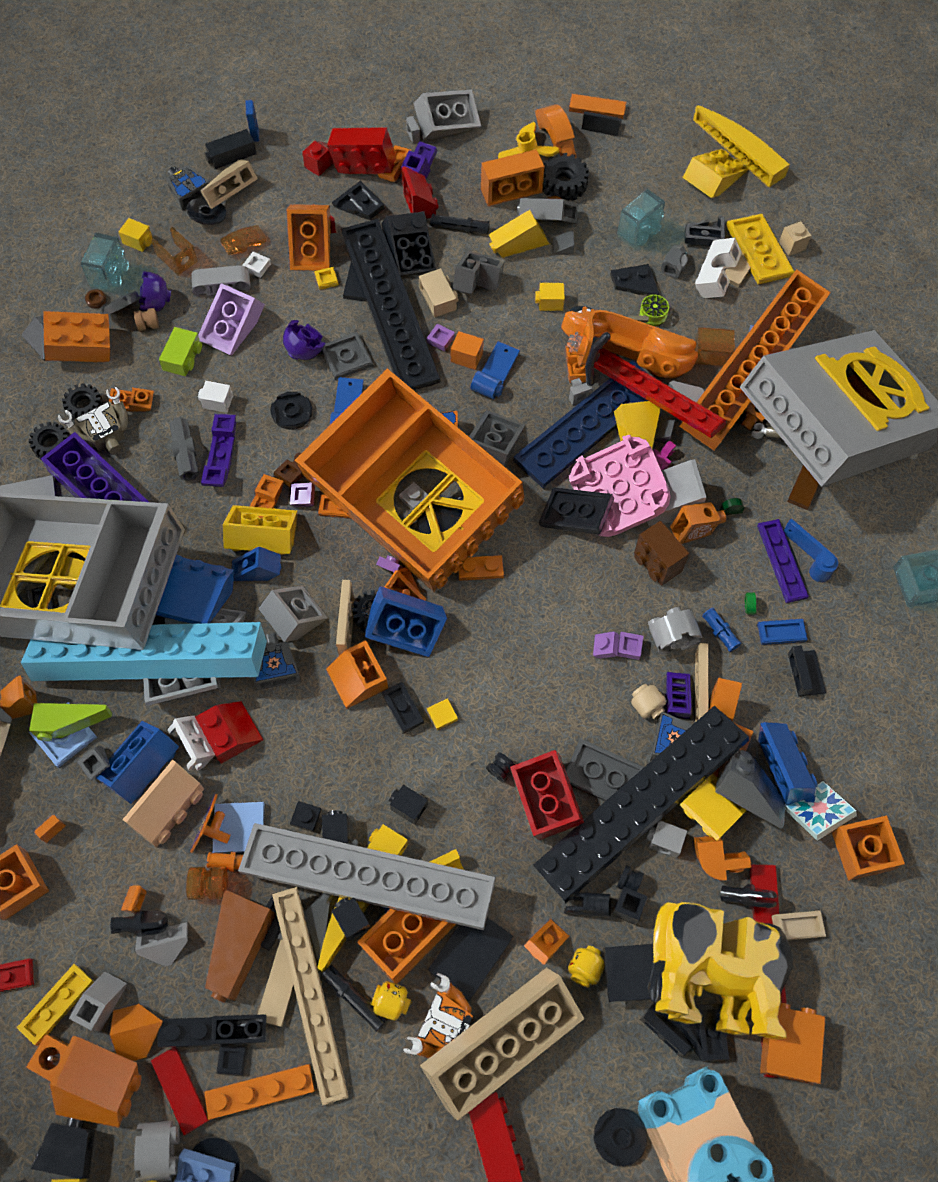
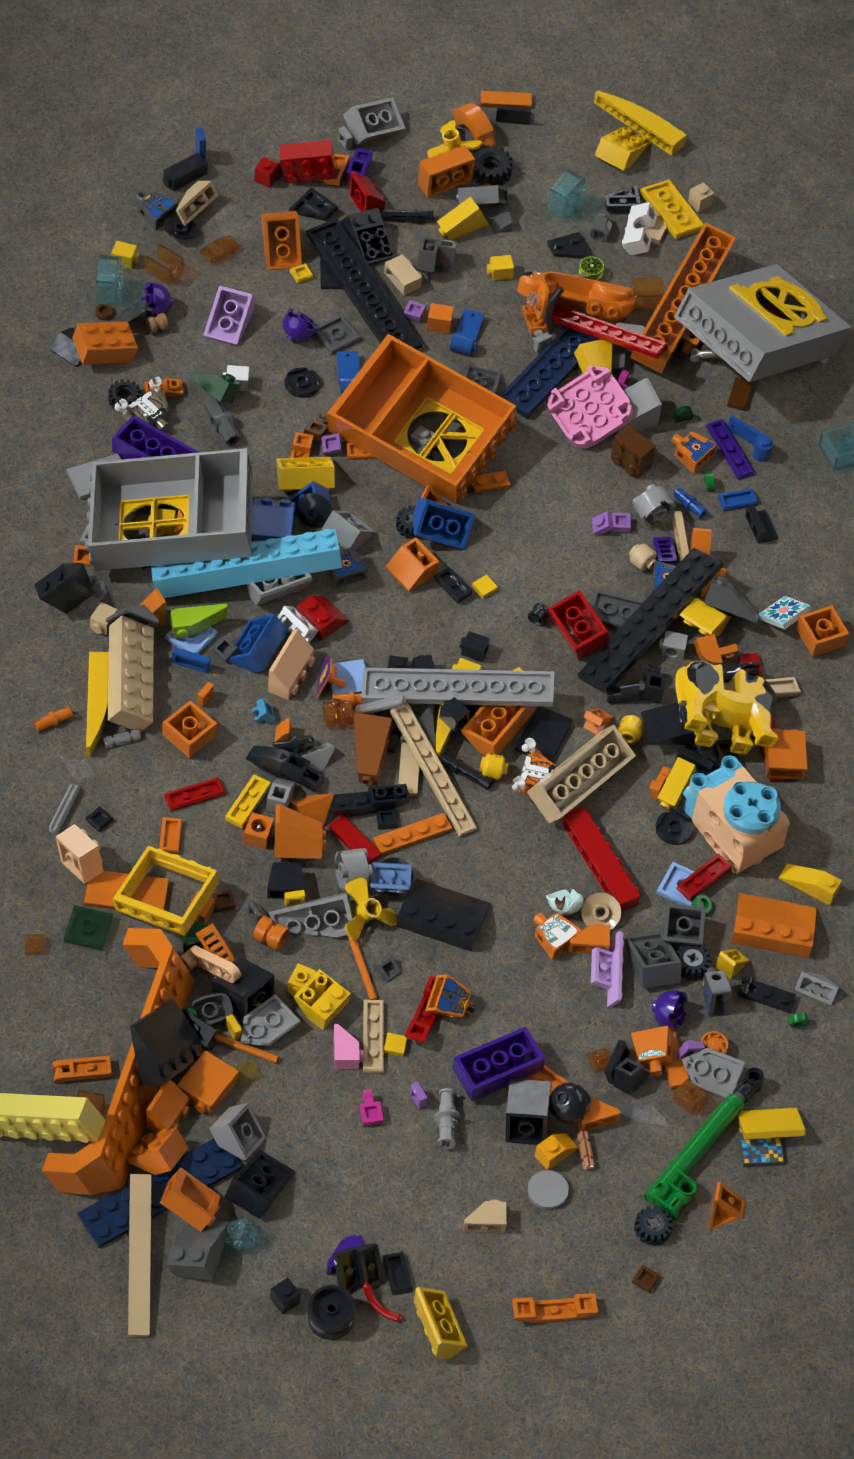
camera: 15 degrees left, 10 degrees down
(45, 432) = (100, 421): black tyre -> none
(47, 774) = (191, 660): none -> blue tile
(117, 865) = (265, 712): none -> dark azure tile
(118, 958) = (281, 761): none -> black slope
(180, 351) = (195, 345): lime brick -> none
(187, 404) = (219, 386): none -> dark green slope
(208, 280) = (208, 284): light grey beam -> none
(221, 451) = (252, 418): dark purple slope -> none
(254, 581) = (316, 503): none -> black dish
(257, 264) = (238, 268): white plate -> none
(263, 884) = (381, 705): none -> light grey axle
(345, 619) = (394, 523): tan tile -> none
(389, 563) = (417, 486): medium lavender plate -> none
(576, 510) = (558, 429): black tile -> none
(607, 1065) = (656, 786): none -> orange plate
(634, 1070) = (676, 783): none -> yellow slope
(696, 522) = (658, 425): orange torso -> none
(736, 557) = (693, 450): none -> orange torso
(786, 762) = (753, 583): blue slope -> none

